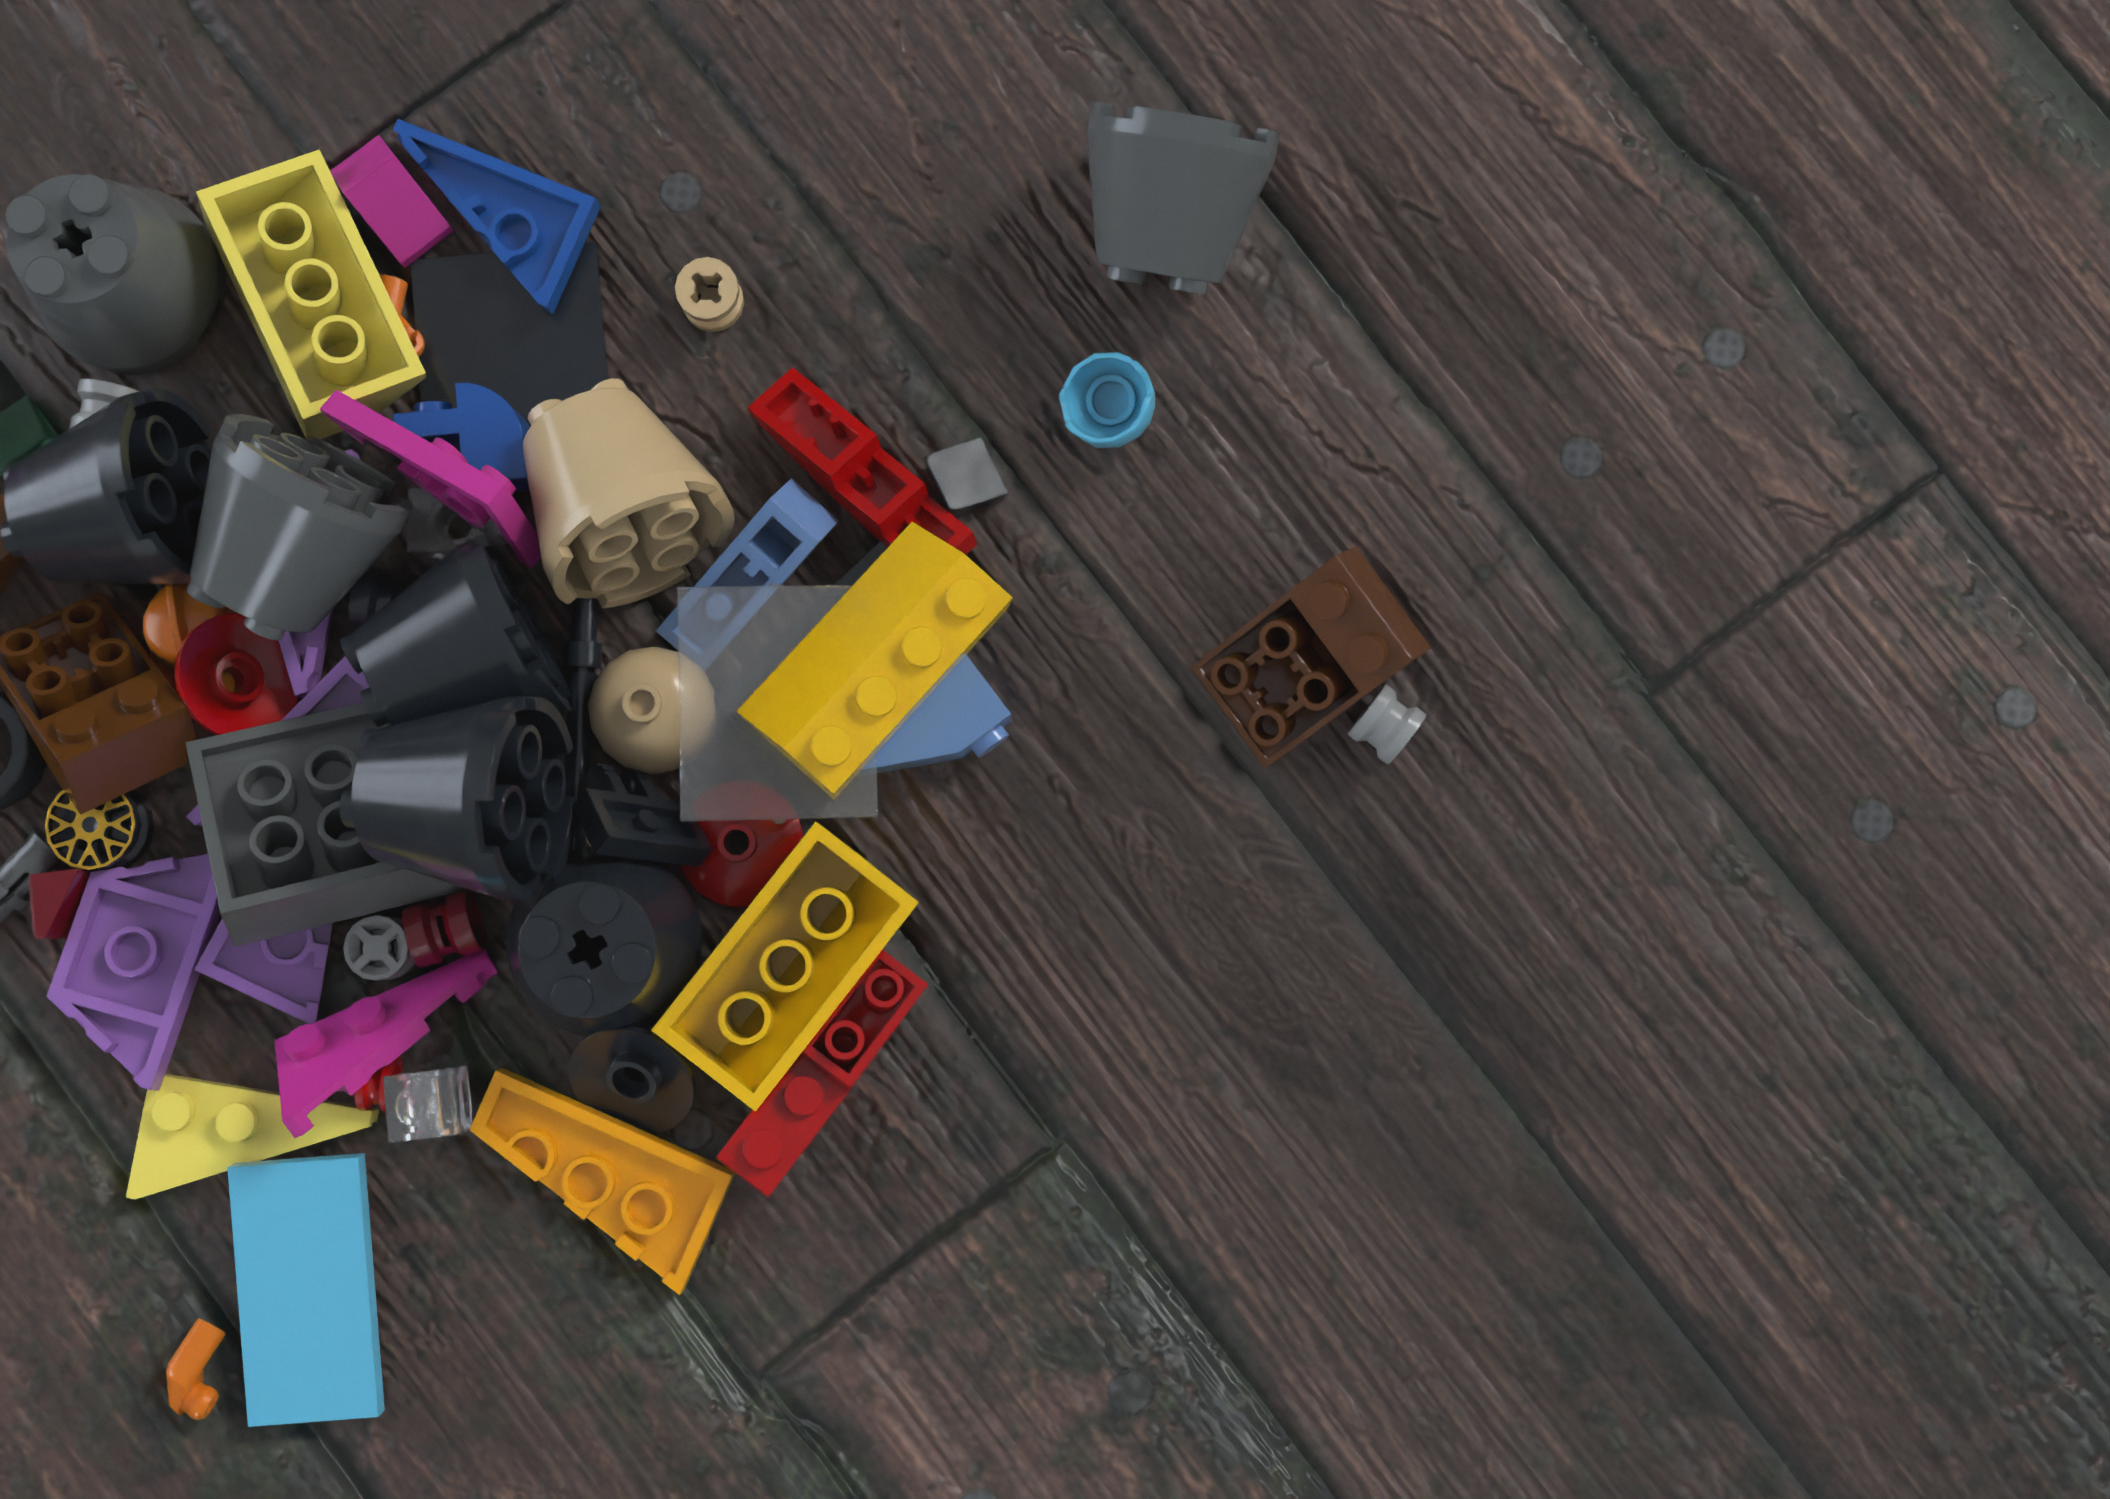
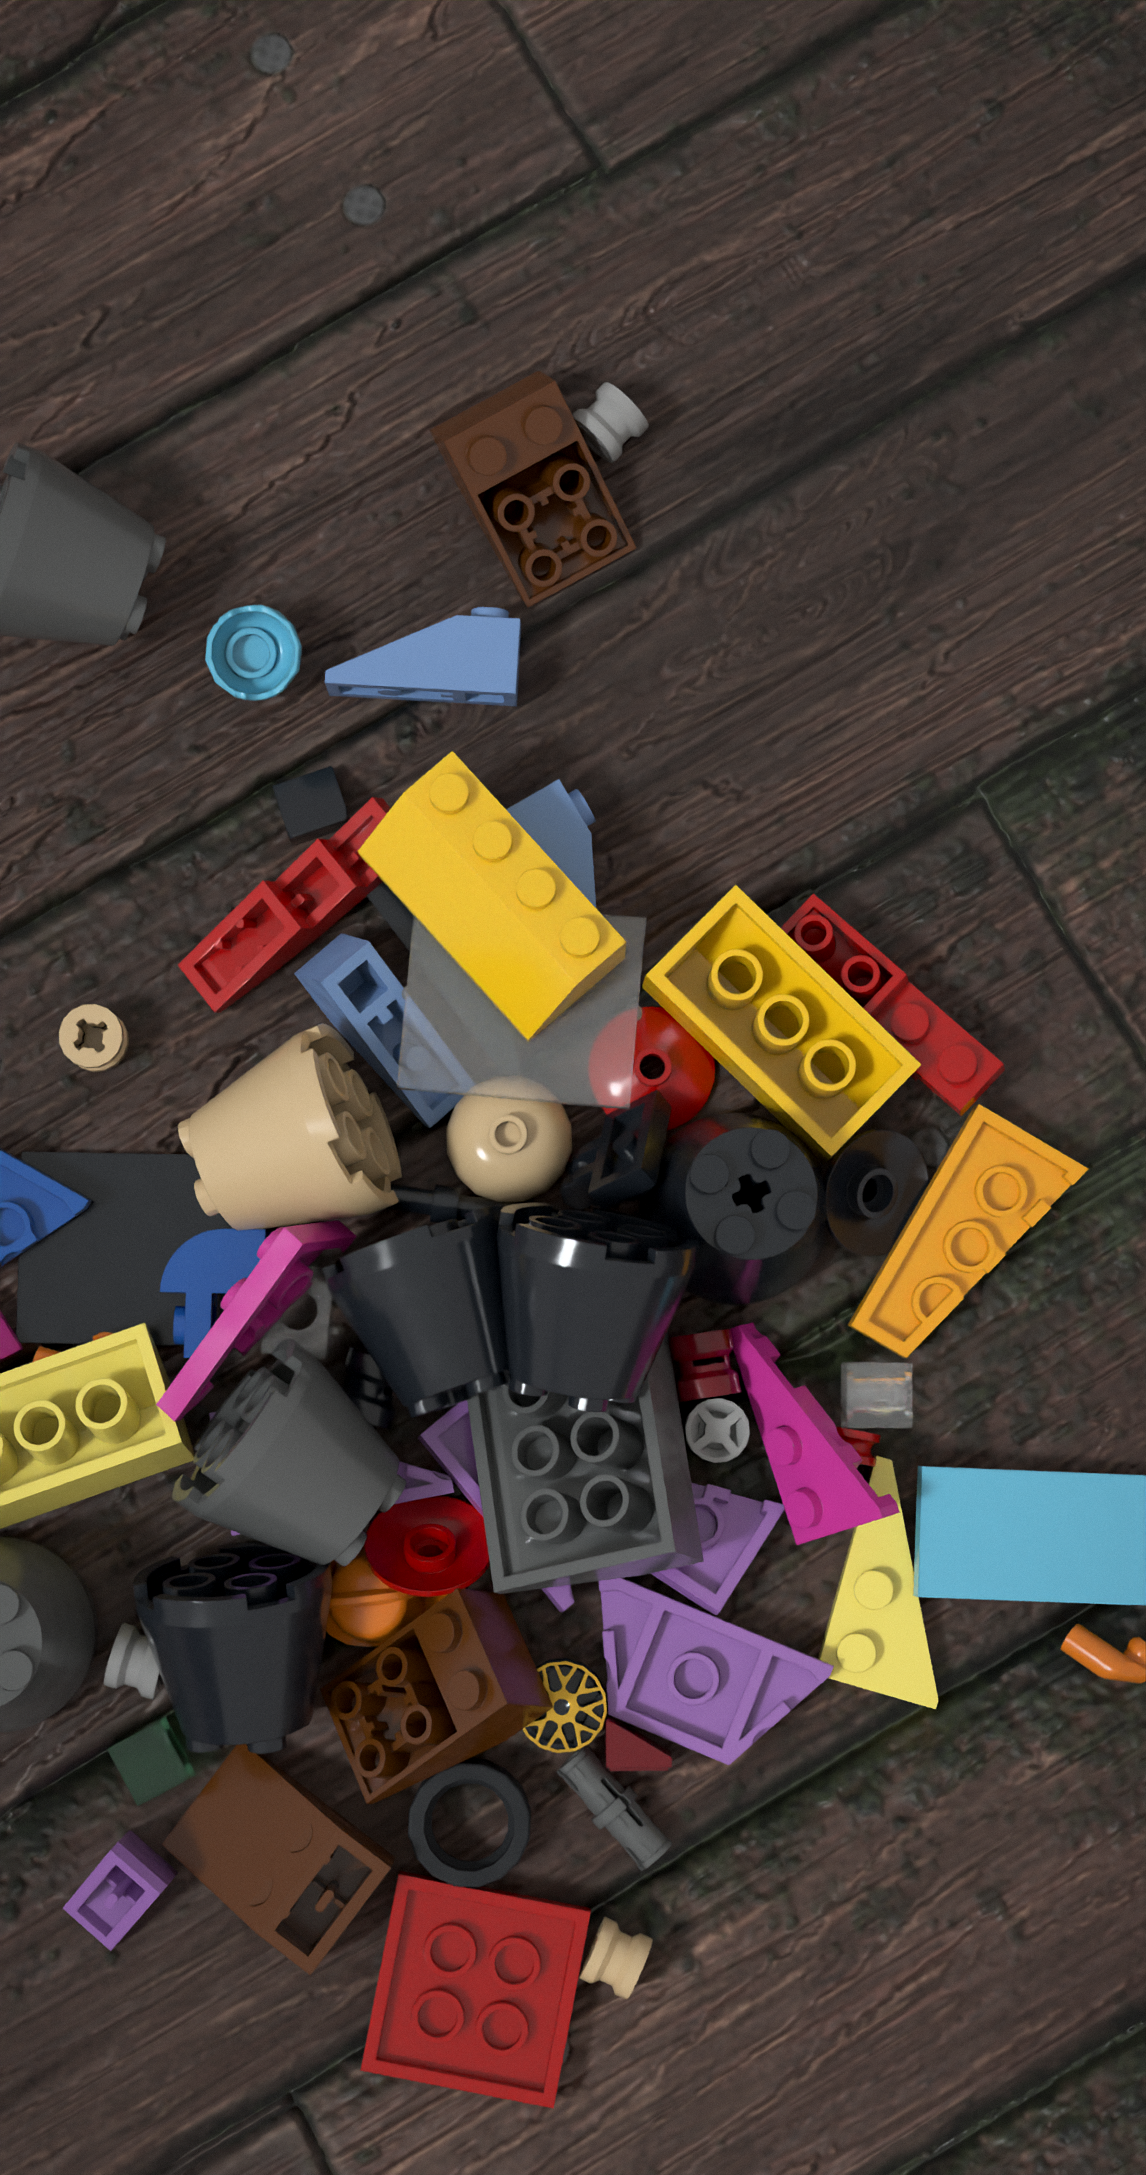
camera: 80 degrees left, 0 degrees up
(1123, 594) = (448, 662): none -> medium blue slope

